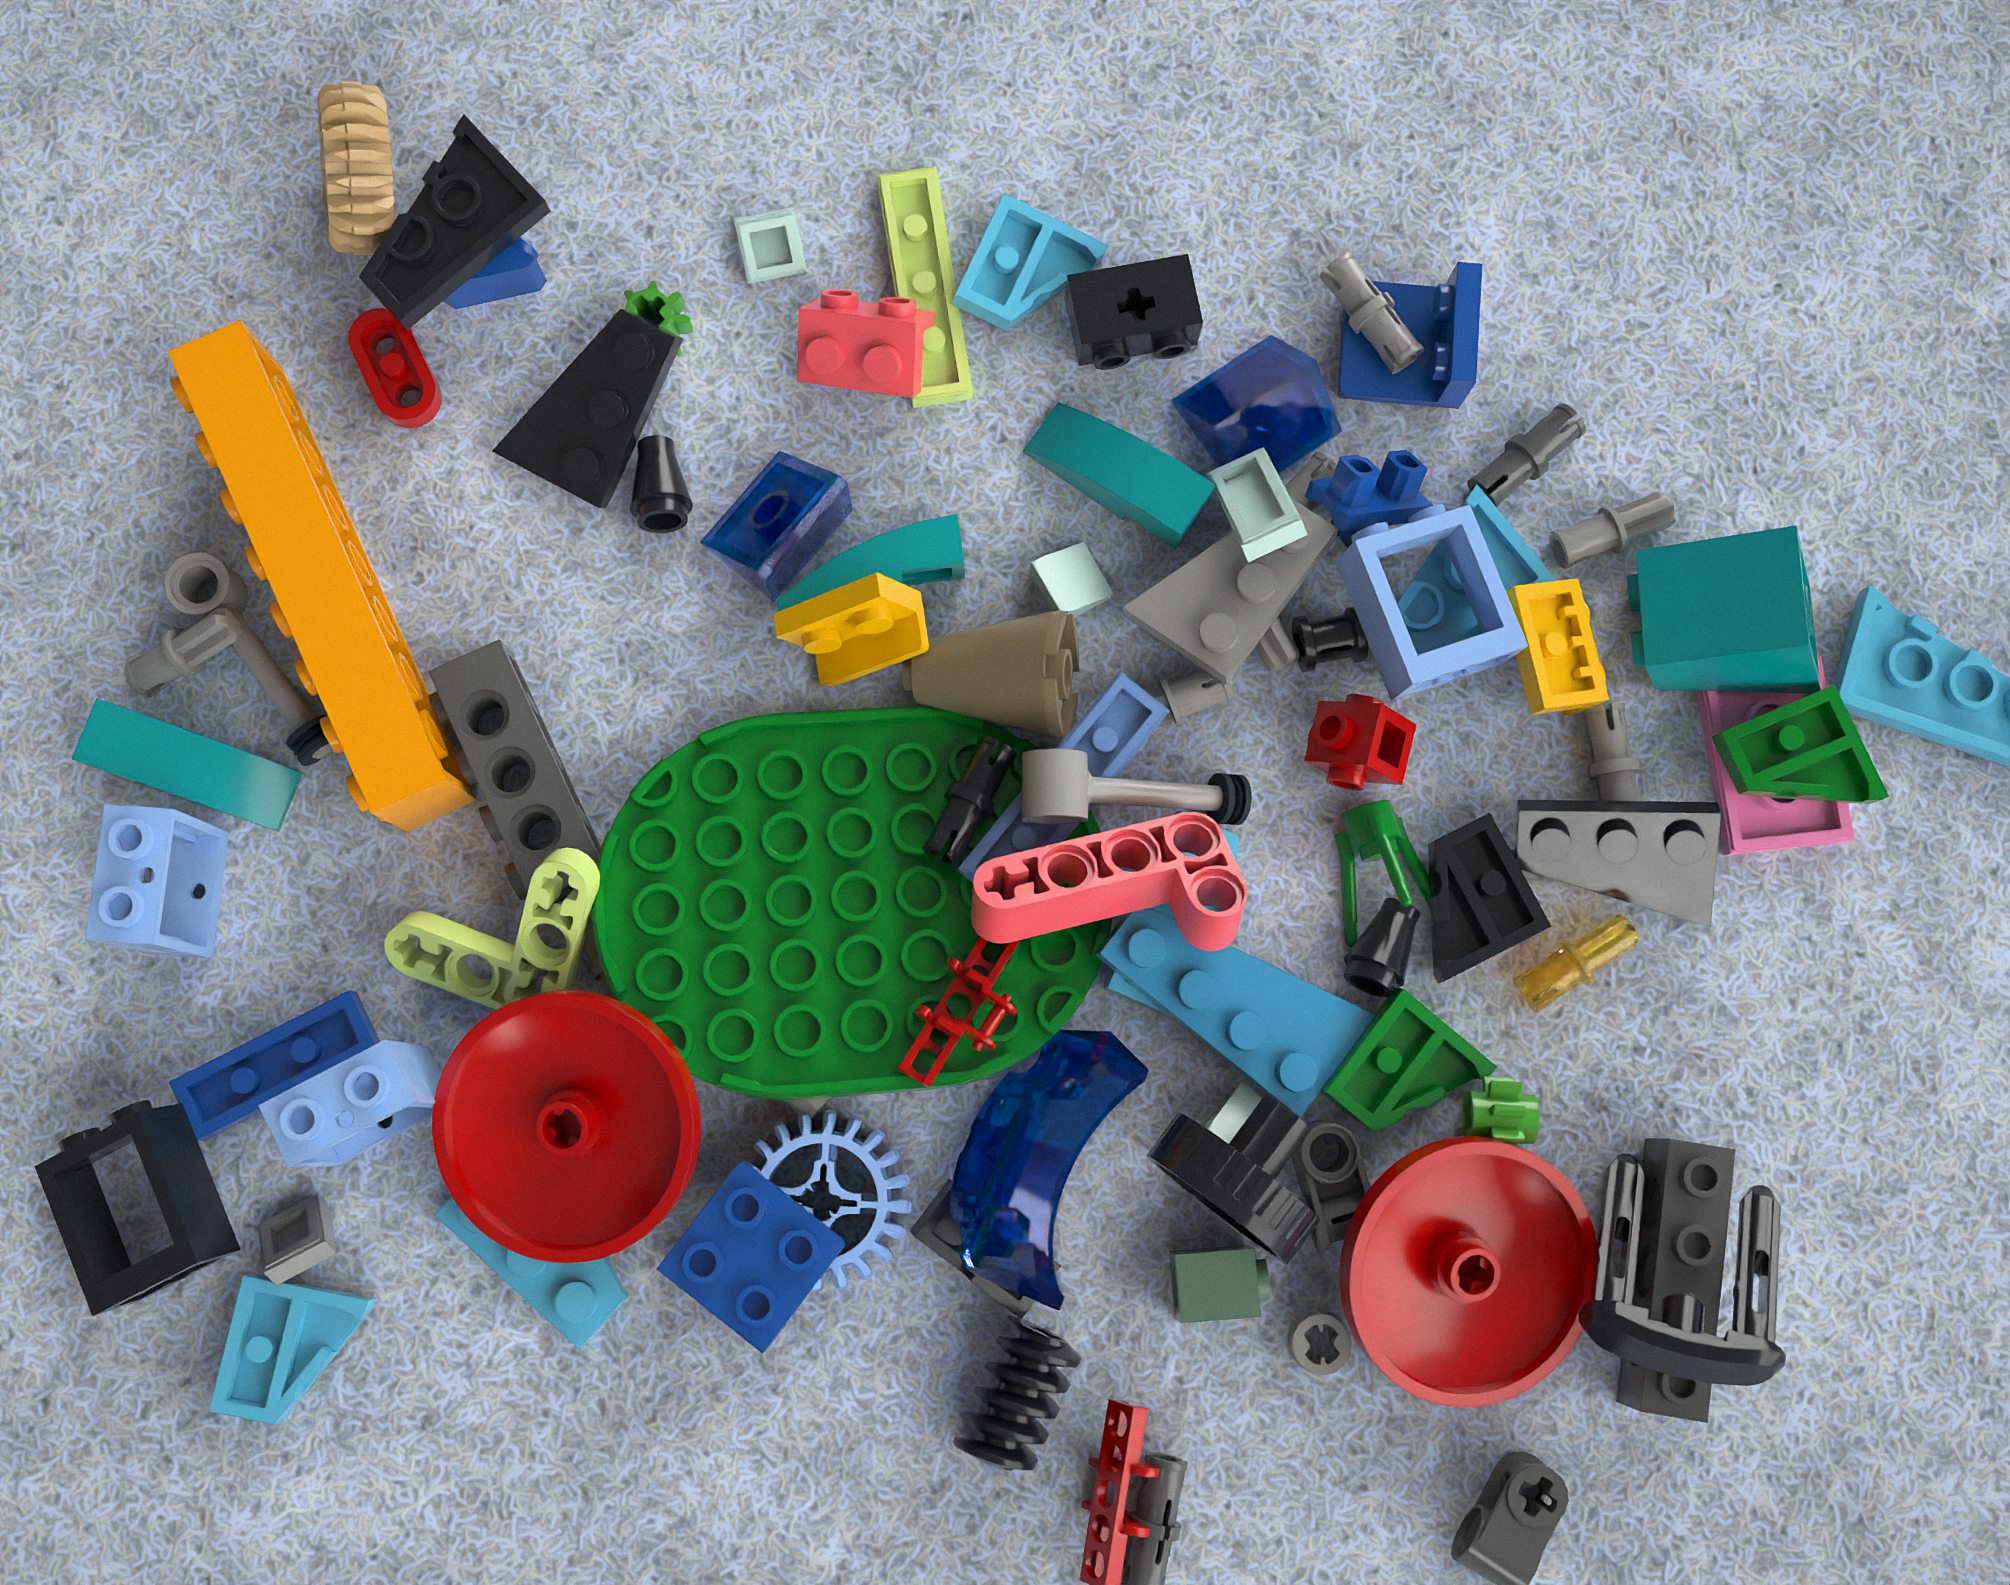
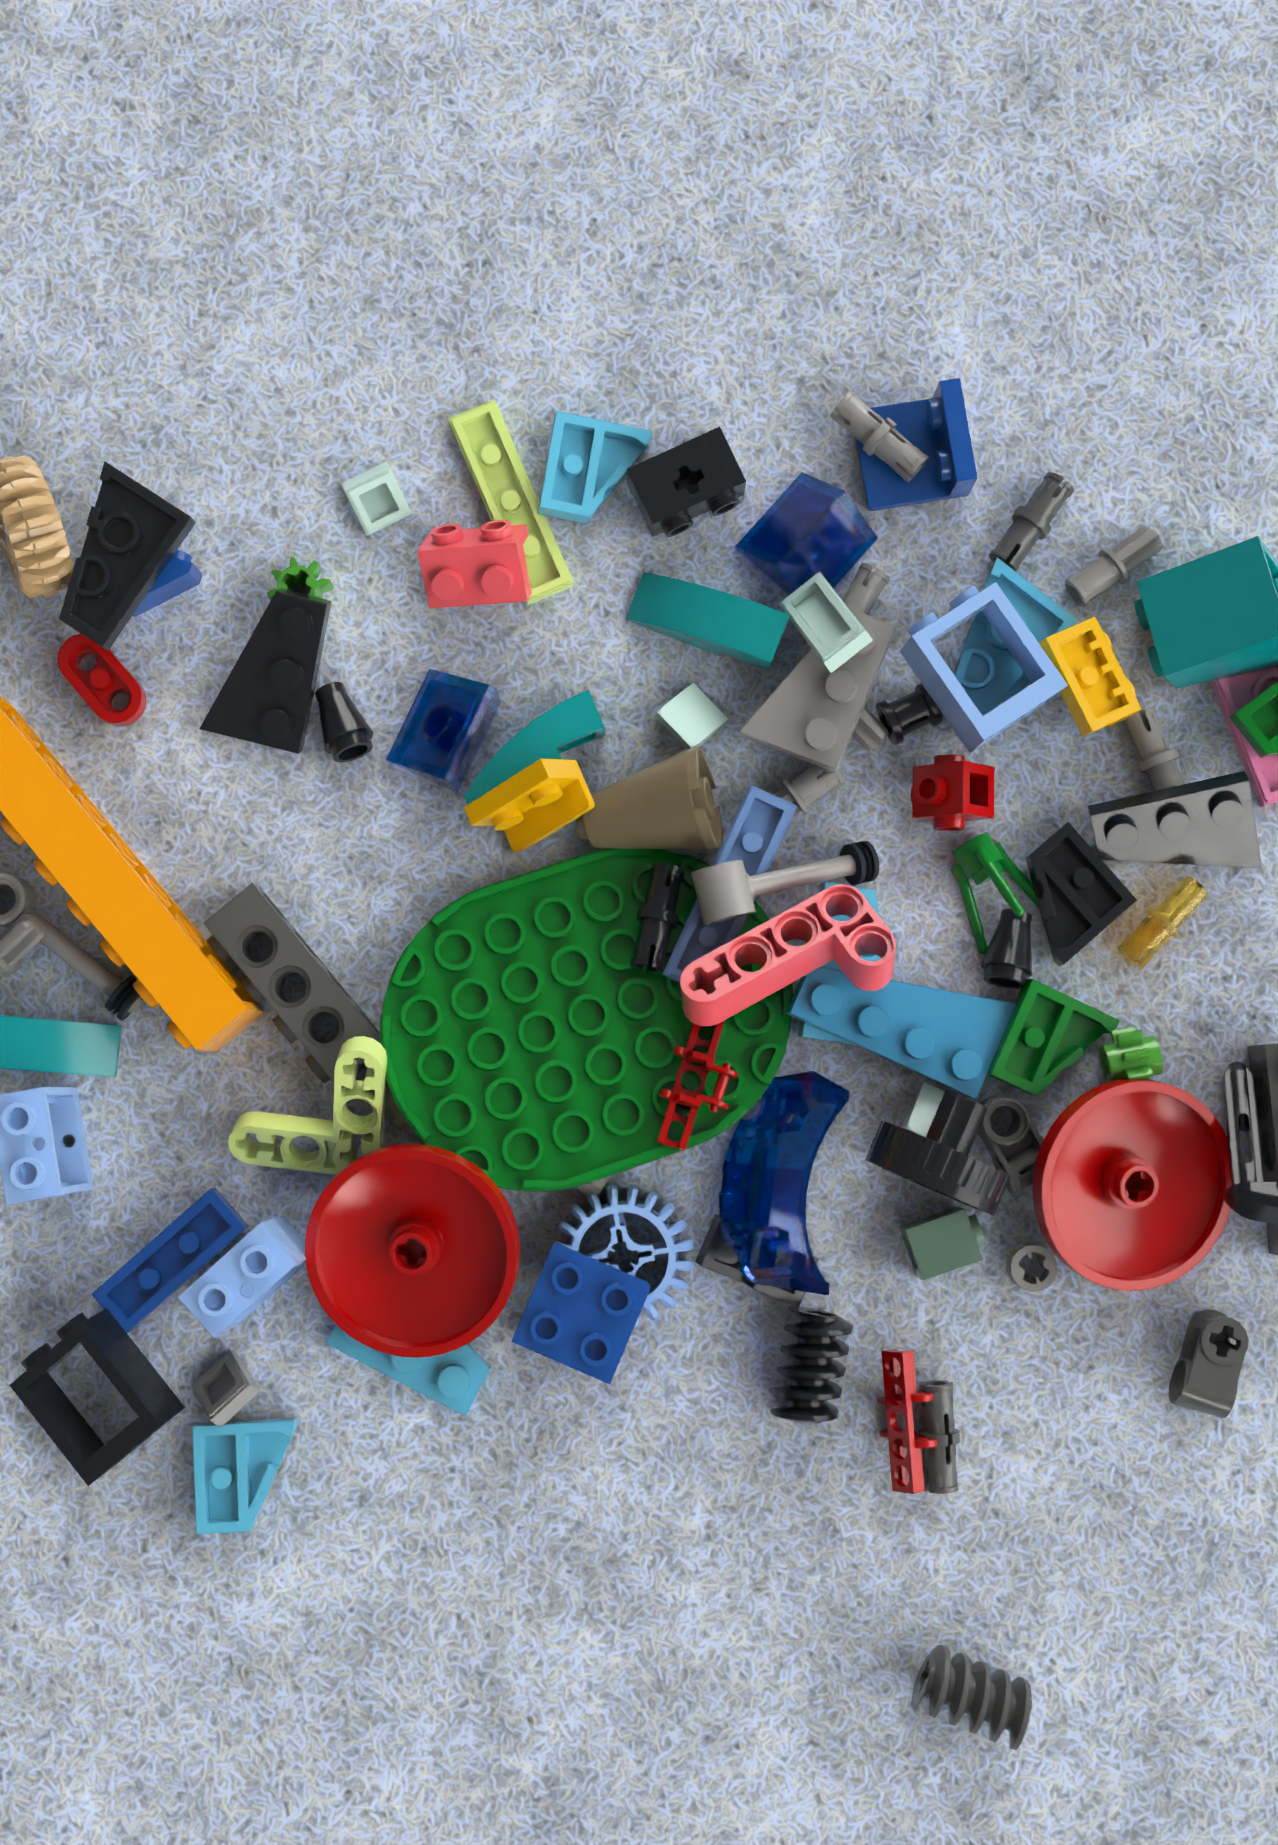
camera: 10 degrees left, 5 degrees up
(1364, 496) = (912, 593): blue hips -> none

